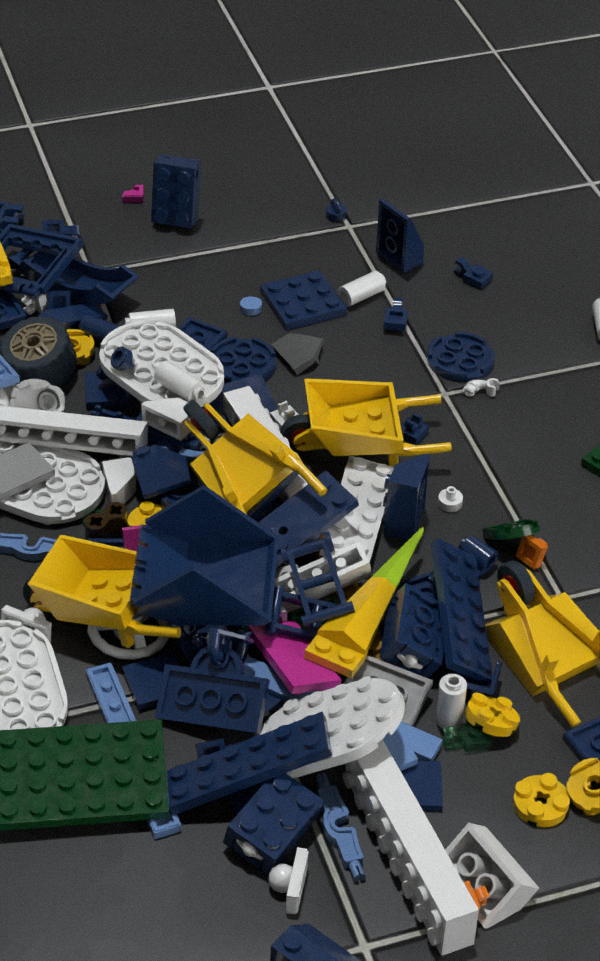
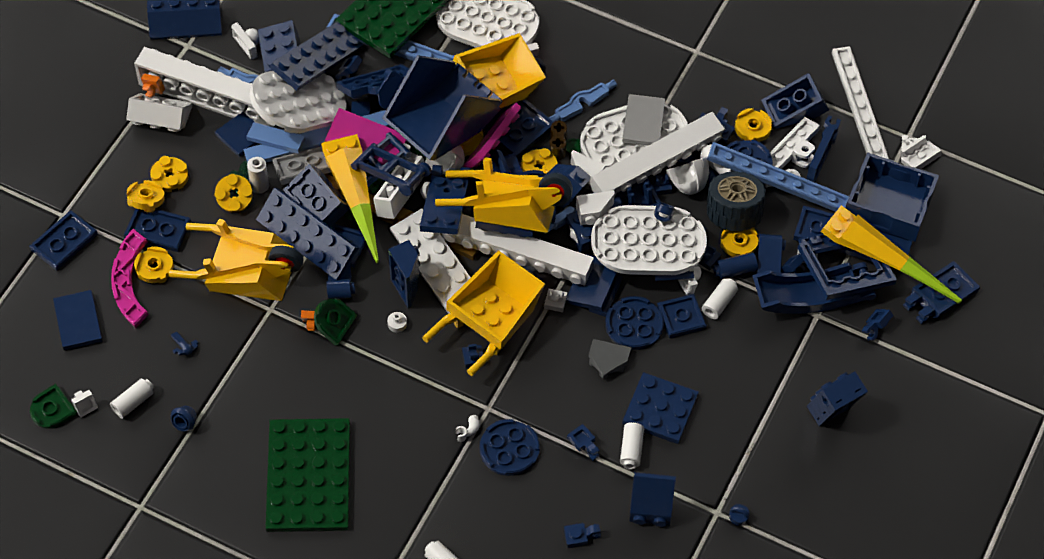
camera: 135 degrees right, 15 degrees up
(134, 195) = (885, 407): dark pink tile -> none
(179, 381) = (610, 221): white brick -> none
(251, 305) = (685, 373): medium blue tile -> none
(478, 688) = (255, 206): dark blue bracket -> none

